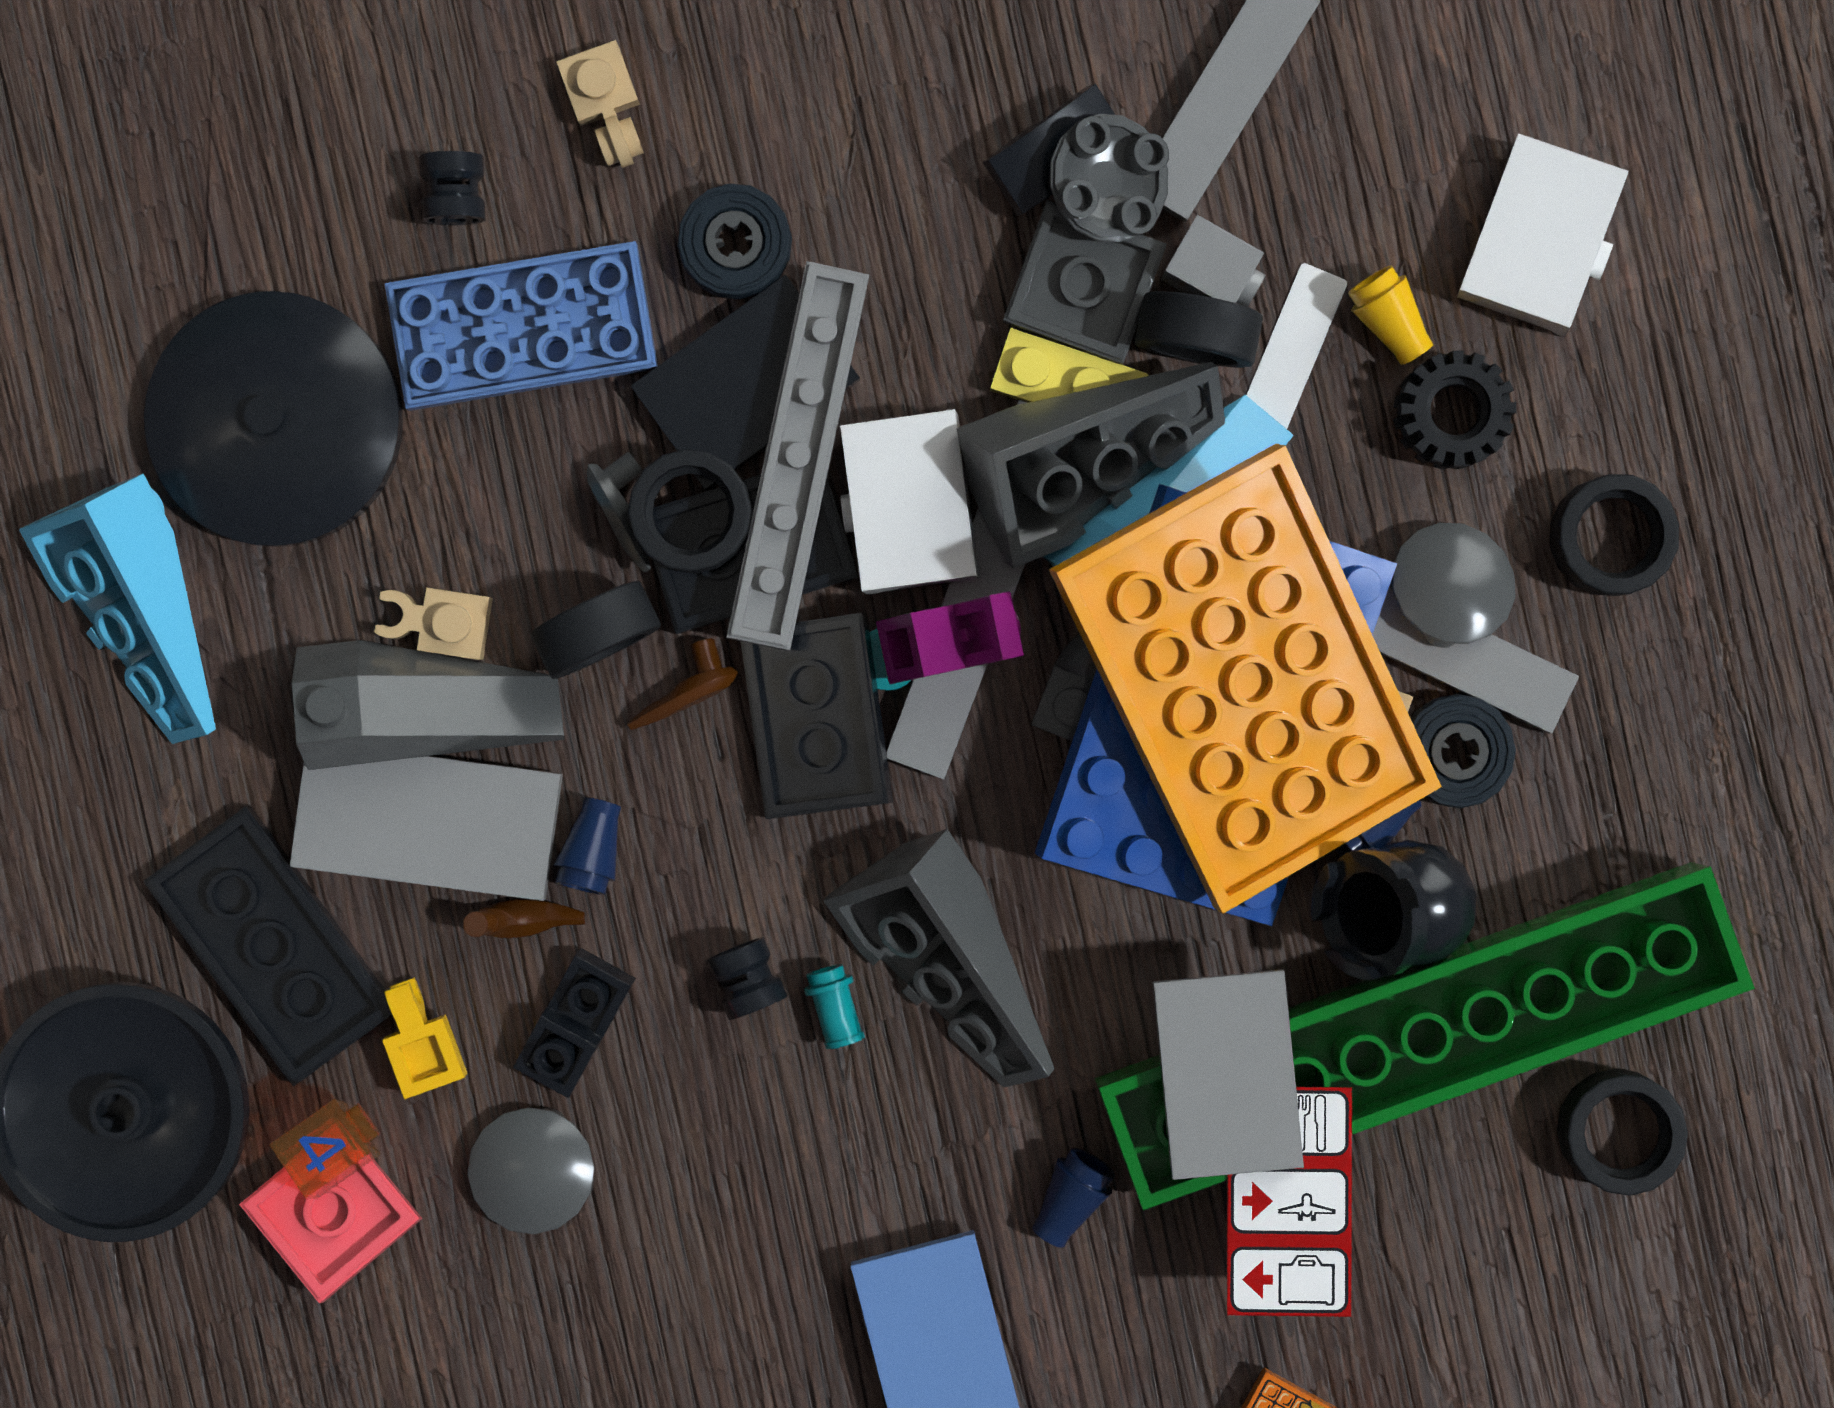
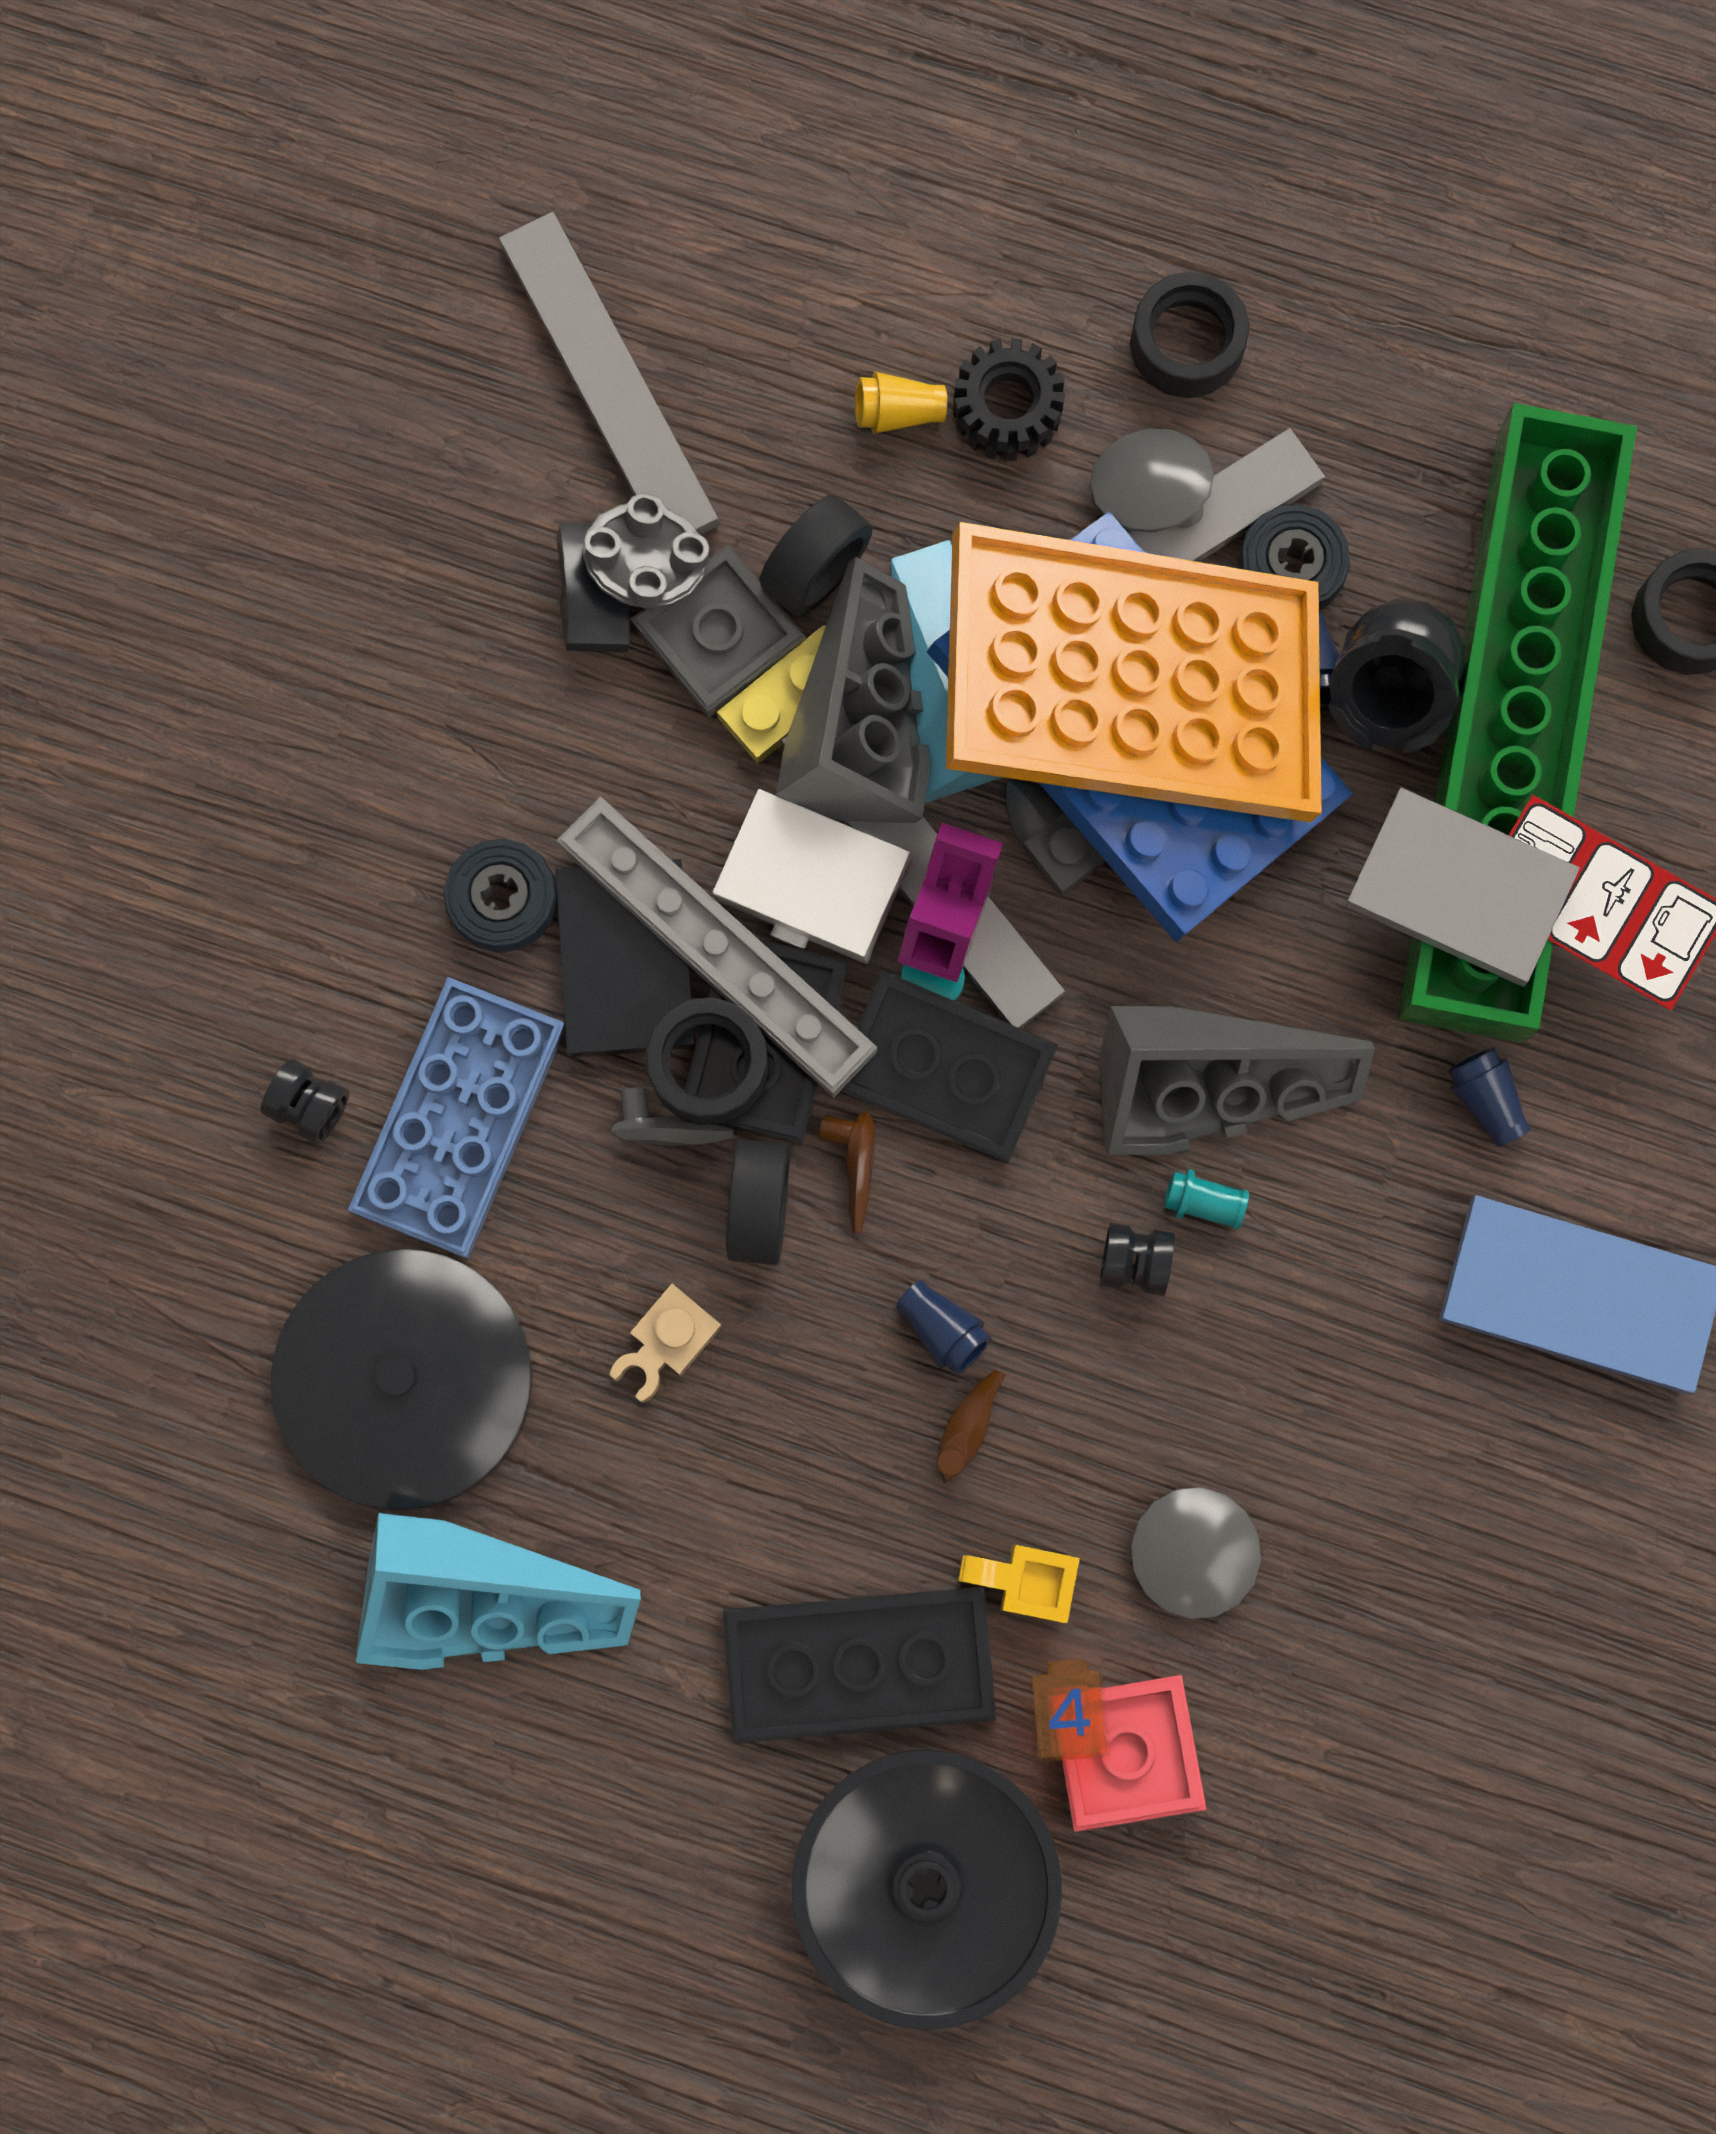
camera: 60 degrees left, 10 degrees down
(401, 703) = (717, 1415): dark grey wedge -> none
(431, 824) = (831, 1455): light grey tile -> none
(574, 1023) = (1087, 1435): black slope -> none
(599, 90) = (300, 930): tan plate -> none
(1215, 265) = (764, 513): light grey brick -> none
(1296, 342) = (872, 494): white sticker -> none
(1544, 235) = (908, 249): white container -> none

